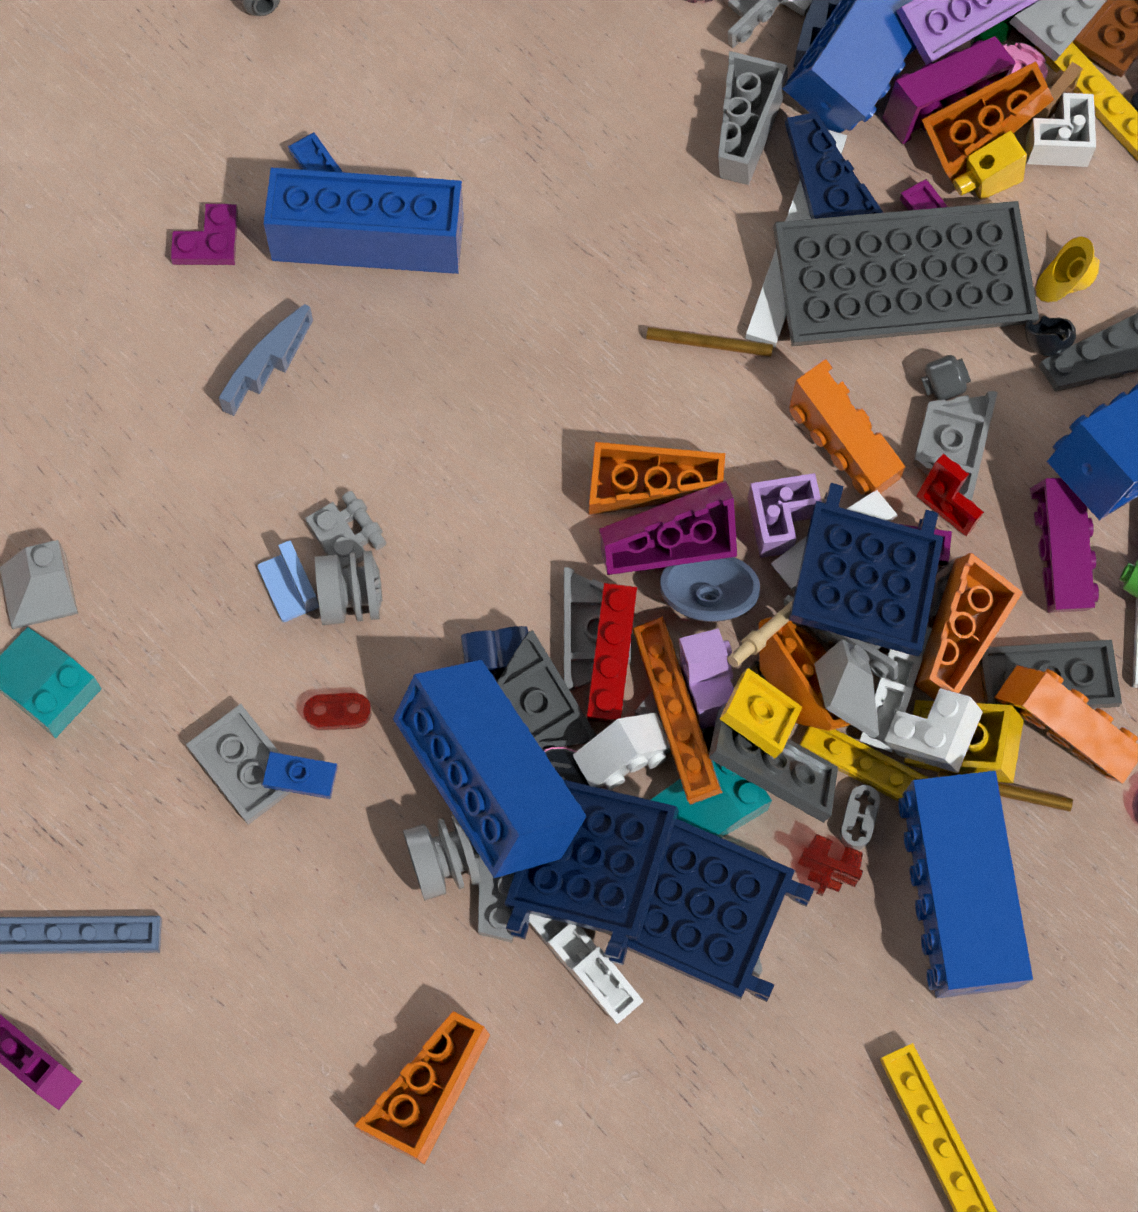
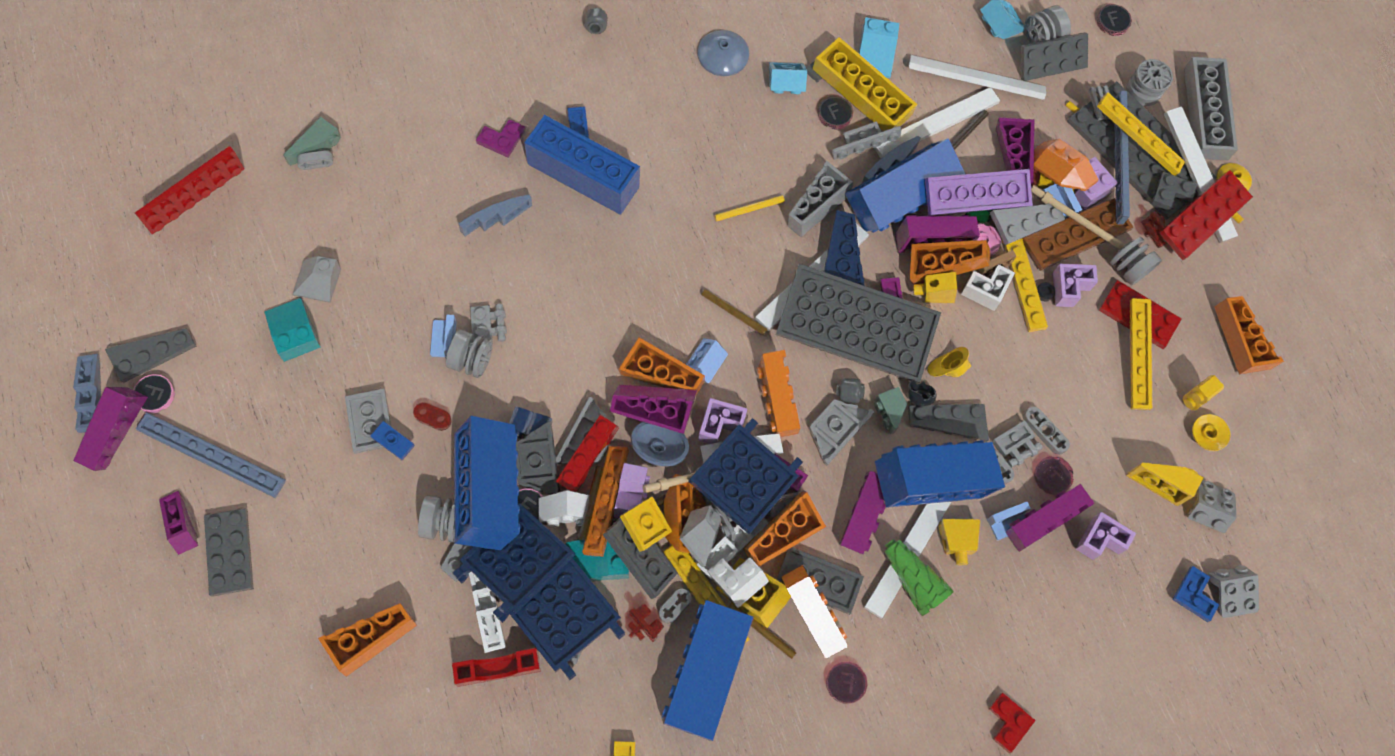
camera: 20 degrees right, 0 degrees up
(133, 1069) = (228, 552): none -> dark grey plate
(647, 176) = (749, 208): none -> yellow bar
(650, 1036) = (497, 668): none -> red arch
(658, 723) = (591, 503): none -> dark brown bar
(708, 426) = (707, 358): none -> light blue panel
(942, 495) = (813, 451): red plate -> none
(1019, 376) = (891, 406): none -> sand green slope

